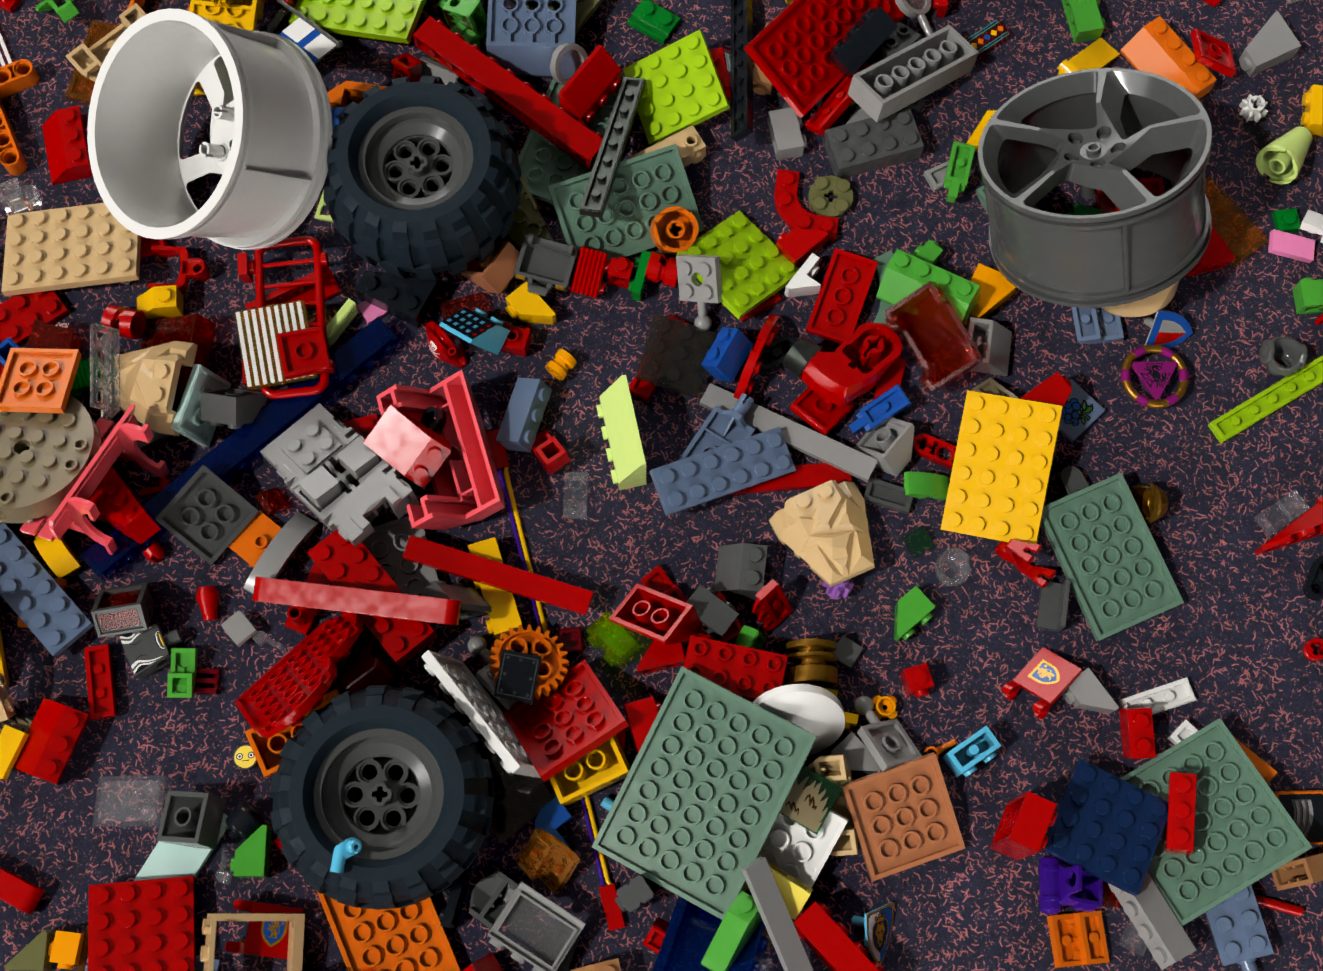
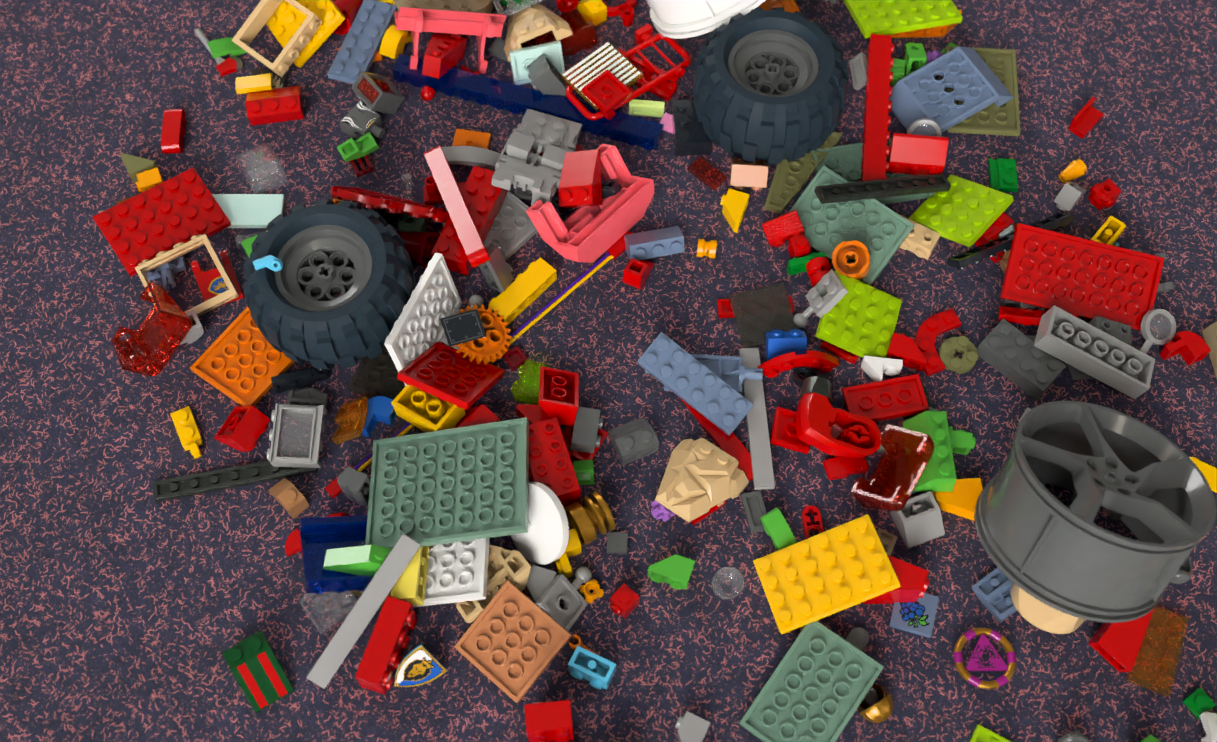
camera: 60 degrees right, 10 degrees down
(100, 682) = (327, 110): red plate -> none
(191, 819) = (265, 200): dark grey slope -> none
(206, 514) = (467, 103): dark grey plate -> none
(208, 602) = (413, 138): red cone -> none
(239, 628) = (405, 162): light grey slope -> none
(272, 501) = (500, 136): clear red plate -> none
(407, 66) = (850, 49): red brick -> none
(445, 345) = (674, 175): red hat -> none
(477, 329) = (692, 182): medium azure slope -> none
(498, 575) = (530, 286): red tile -> none
(520, 344) = (704, 212): red brick -> none
(545, 264) = (769, 197): dark grey piece -> none
(575, 495) = (620, 308): clear slope -> none
(623, 435) = (681, 309): yellowish green slope -> none
(659, 581) = (589, 393): red slope -> none
(771, 605) = (617, 469): red plate -> none
(786, 133) = (982, 299): light grey brick -> none
(811, 799) = (485, 560): slope -> none
(862, 40) = (1090, 301): black wedge -> none
(880, 410) = (815, 469): blue hinge -> none
(889, 445) = (792, 489): light grey slope -> none
(918, 542) = (733, 551): clear green tile -> none
(989, 37) = (1170, 397): clear red tile -> none
(1015, 553) = (767, 618): red piece -> none
(1045, 678) = (679, 694): flag -> none
(1053, 606) = (745, 674): dark grey panel -> none
(1167, 329) = (1031, 649): shield -> none
(1291, 246) = (1179, 717): bright pink tile -> none

